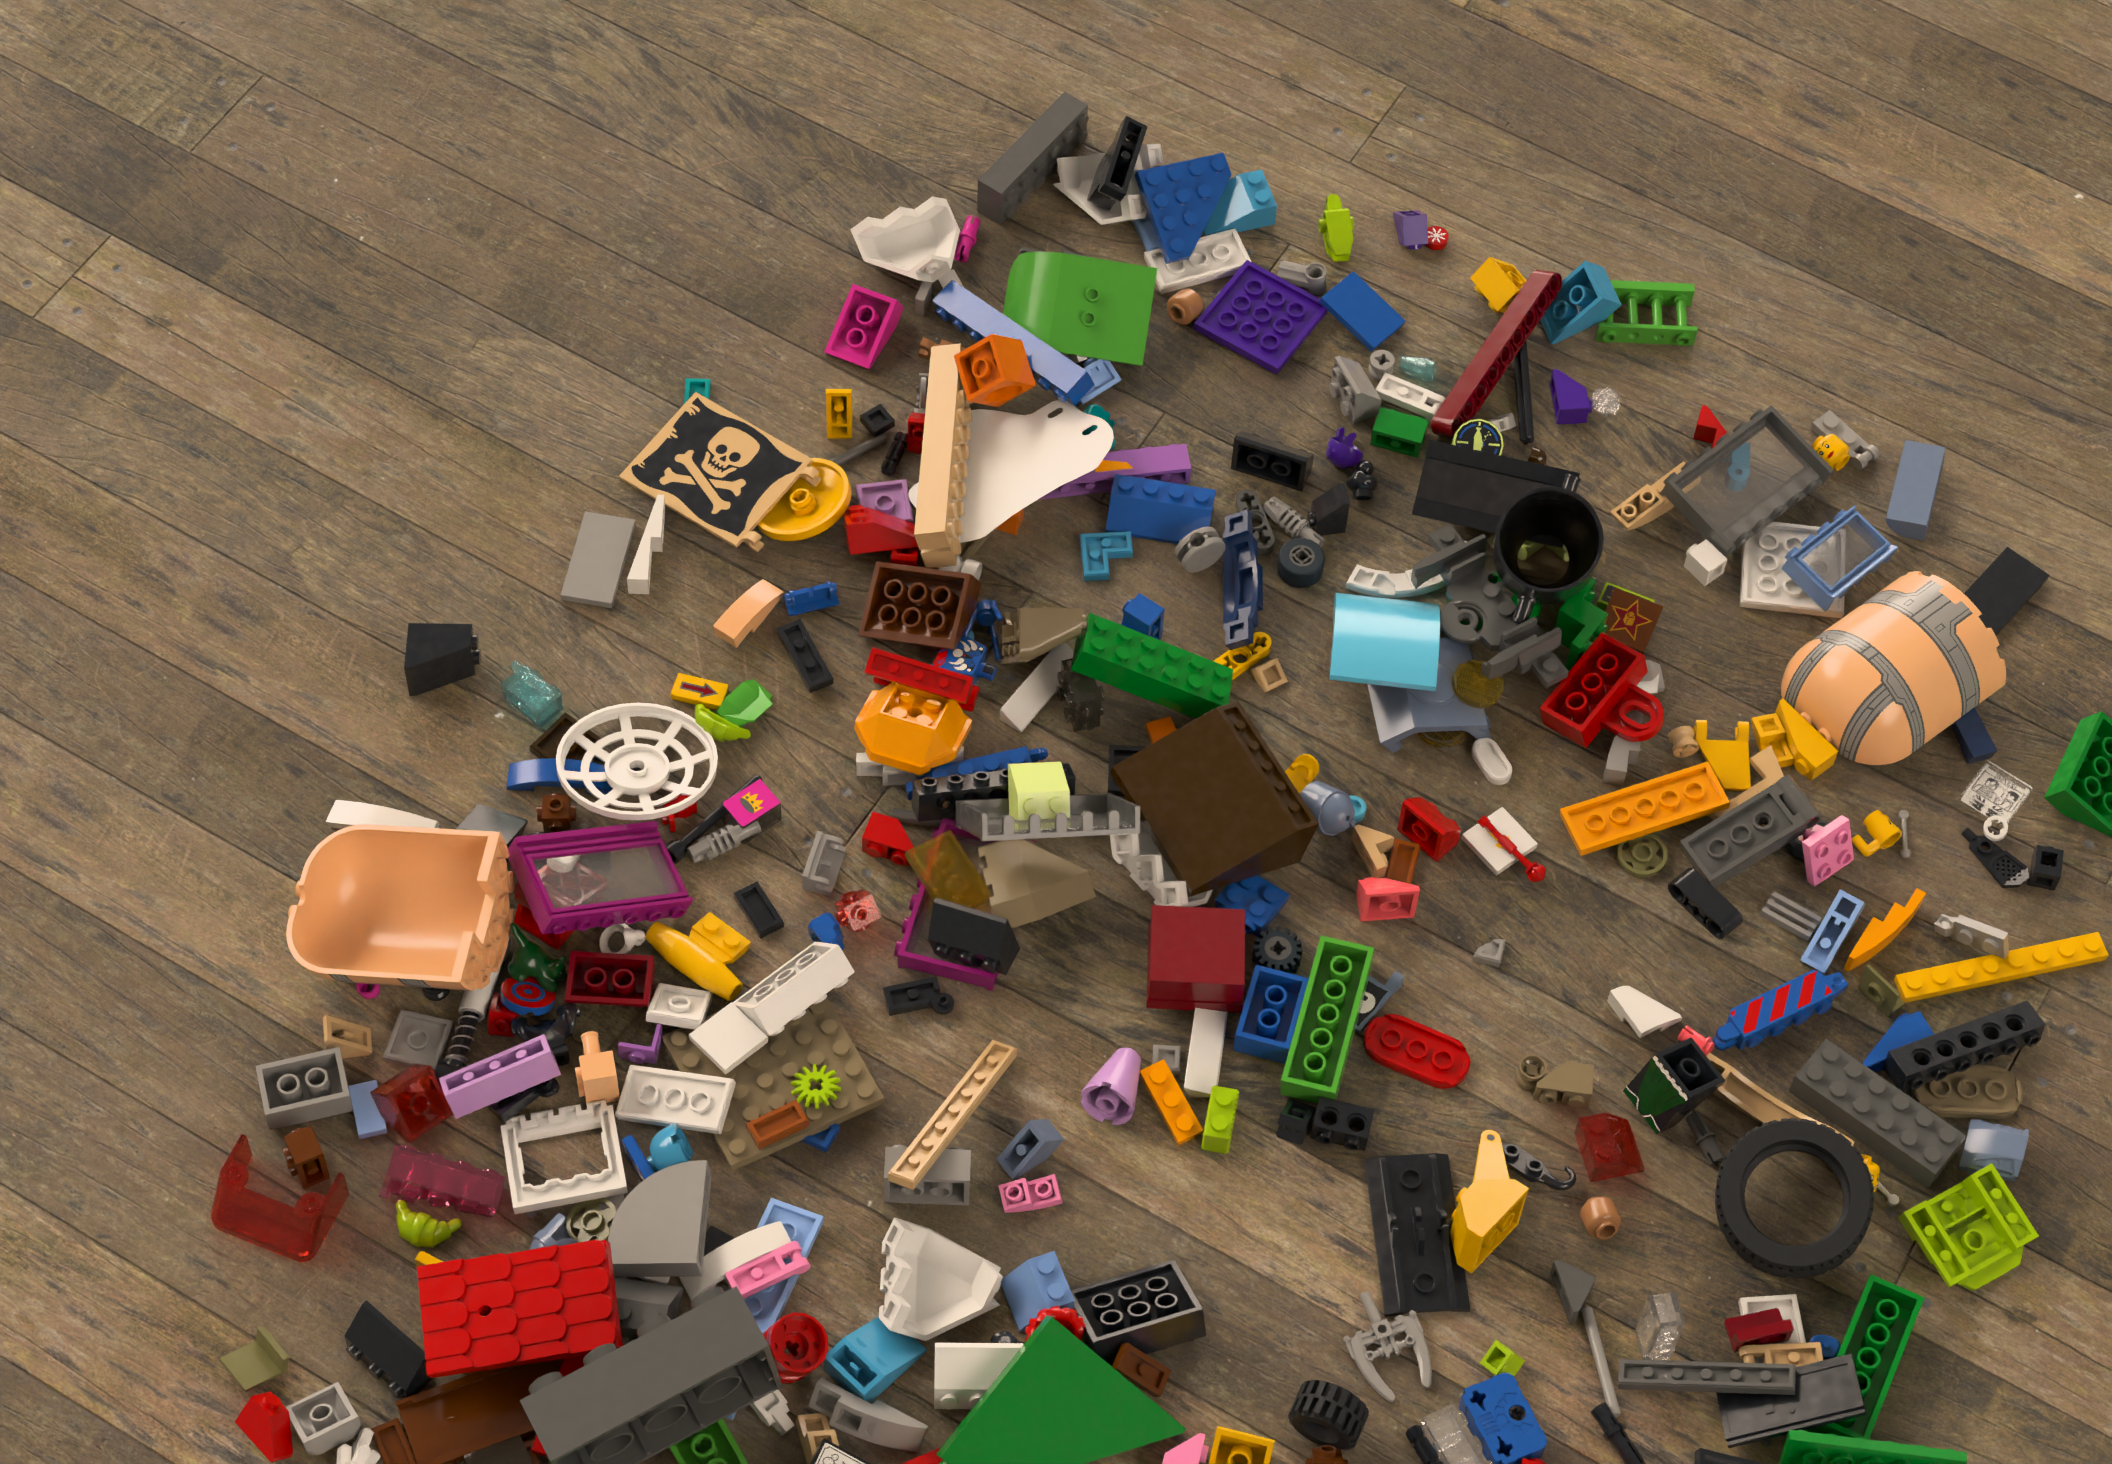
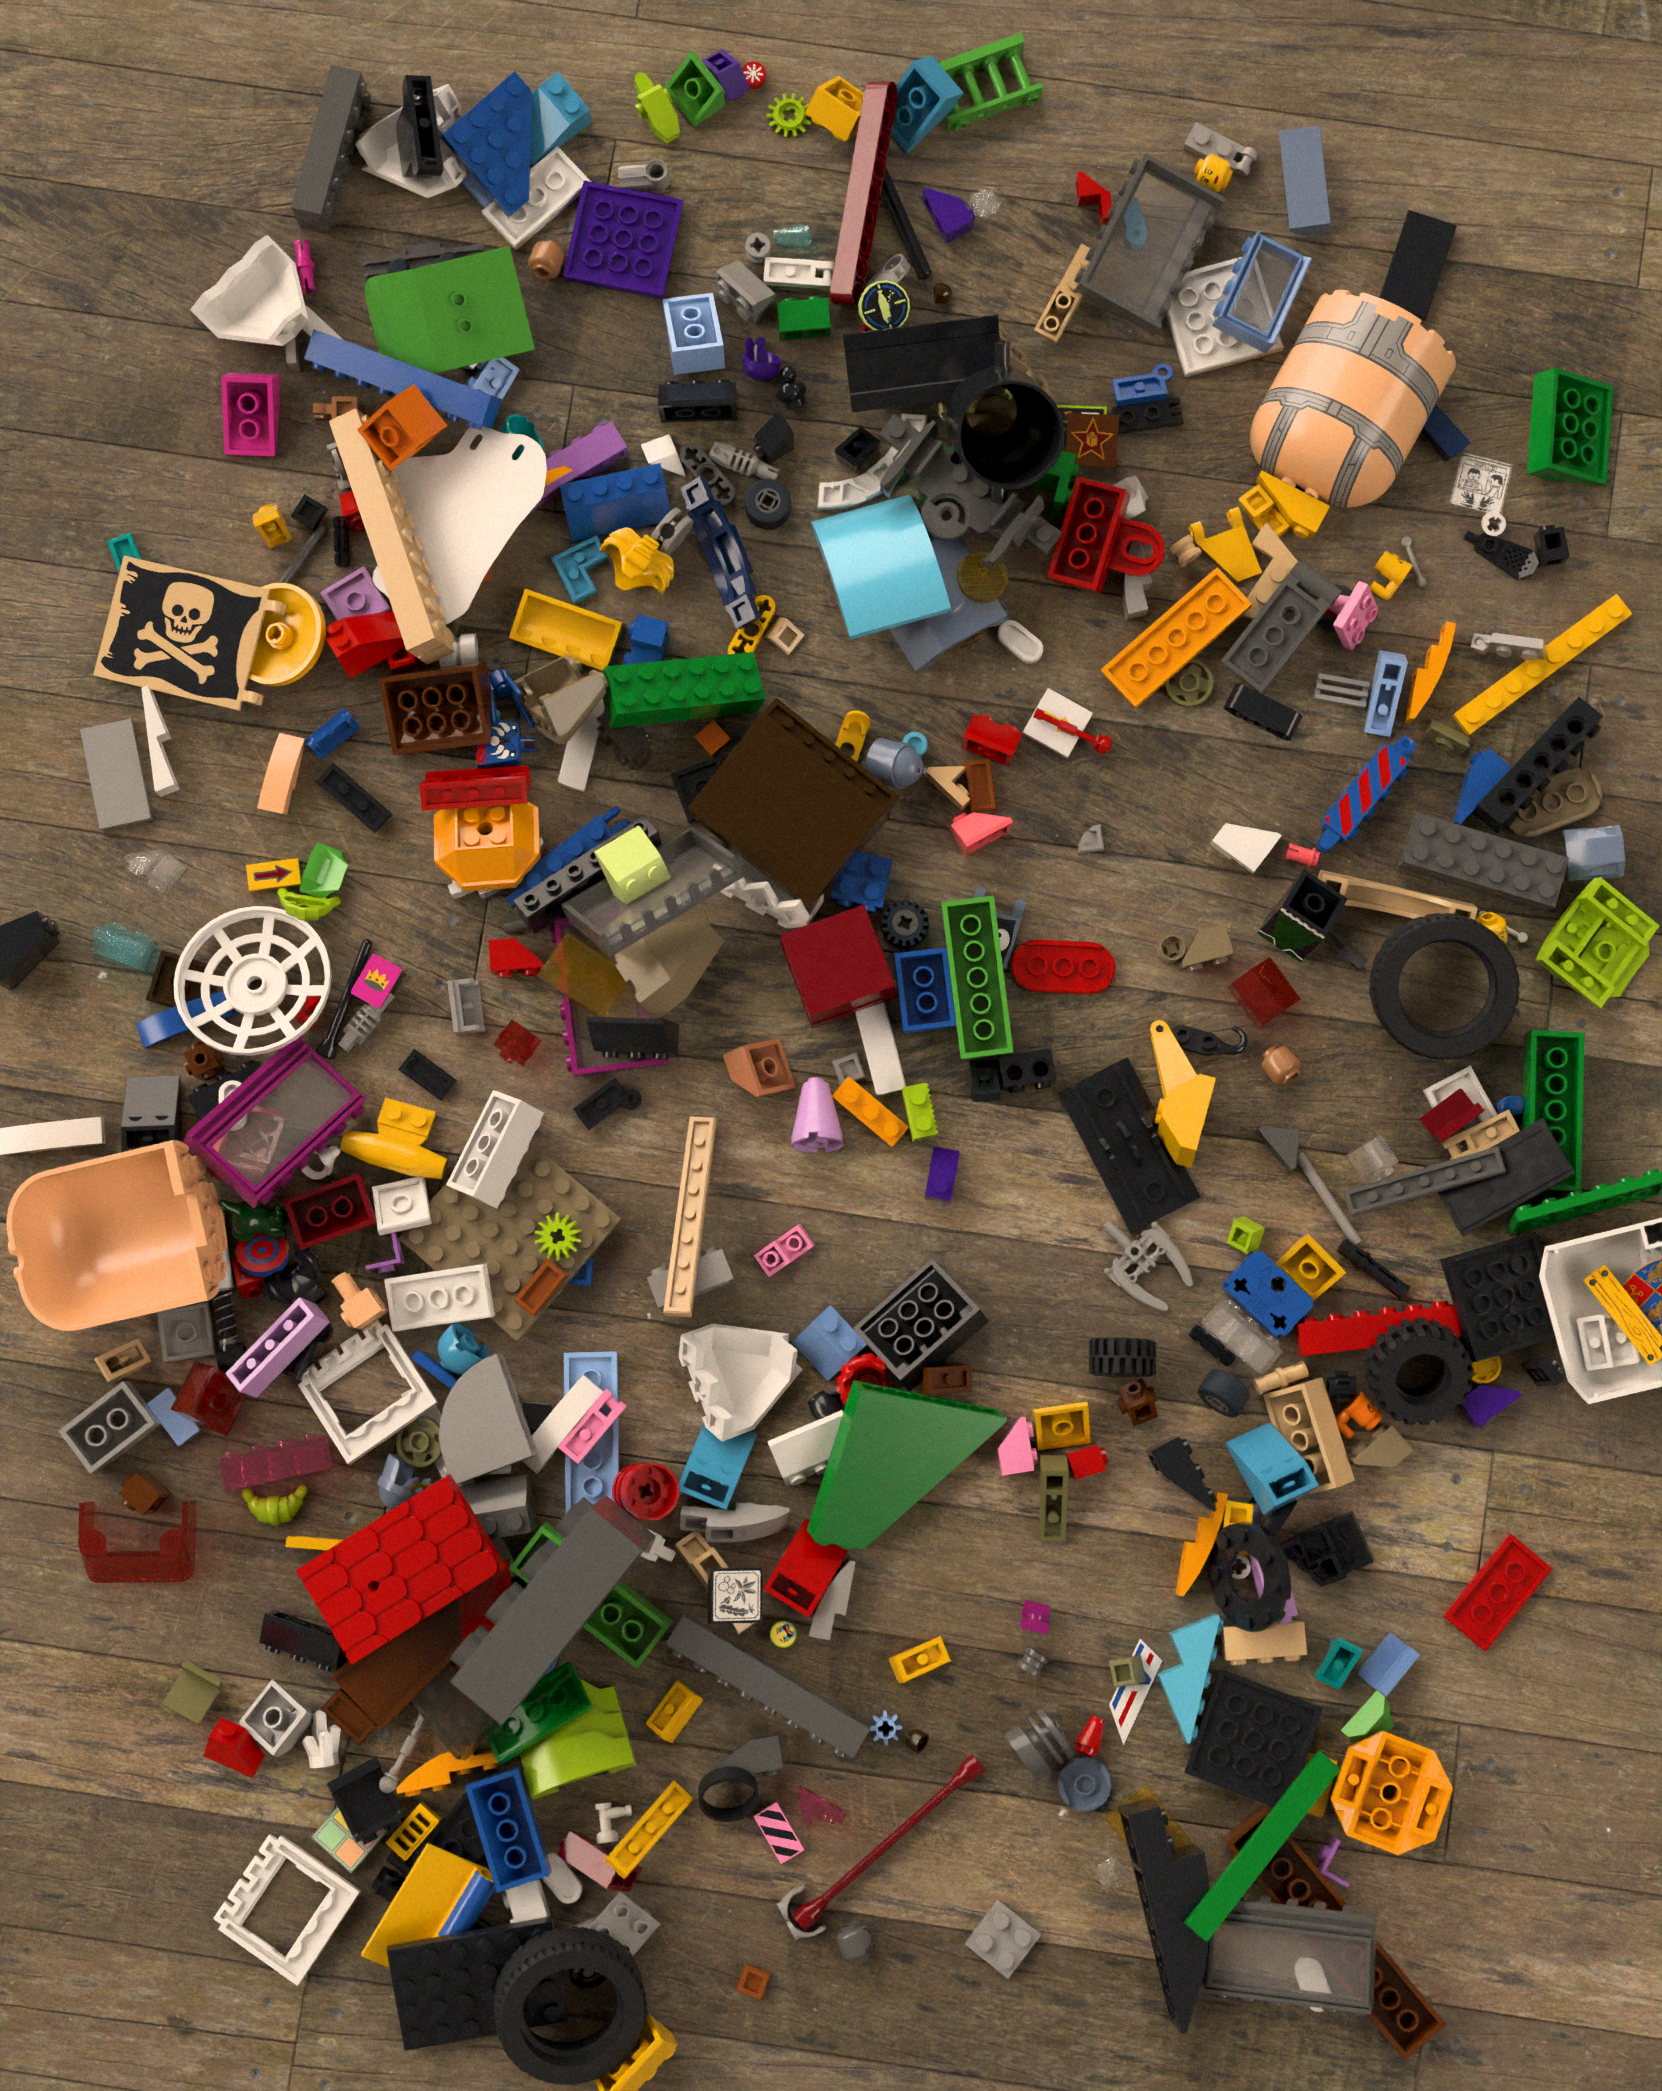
camera: 20 degrees left, 25 degrees up
(598, 644) = (159, 867): none -> clear slope
(728, 1038) = (460, 1222): white tile -> none
(826, 930) = (502, 1078): blue rock -> none
(1030, 1147) = (766, 1209): sand blue slope -> none
(1057, 584) = (566, 629): none -> yellow slope
(1081, 1019) = (760, 1068): none -> nougat slope
(1159, 560) = (638, 561): none -> yellow piece
(1215, 1187) = (942, 1174): none -> dark purple slope
(1224, 493) = (663, 452): none -> white sticker
(1292, 409) = (694, 333): none -> light blue slope
(1362, 311) = (716, 194): blue tile -> none
(1379, 229) = (695, 90): none -> bright green slope
(1399, 547) = (856, 449): none -> black slope
(1457, 271) = (779, 116): none -> lime gear
(1560, 1414) = (1310, 1266): none -> yellow slope
(1692, 623) = (1148, 415): none -> black hinge
(1694, 596) = (1142, 387): none -> blue hinge
(1705, 562) = (1138, 345): white brick -> none

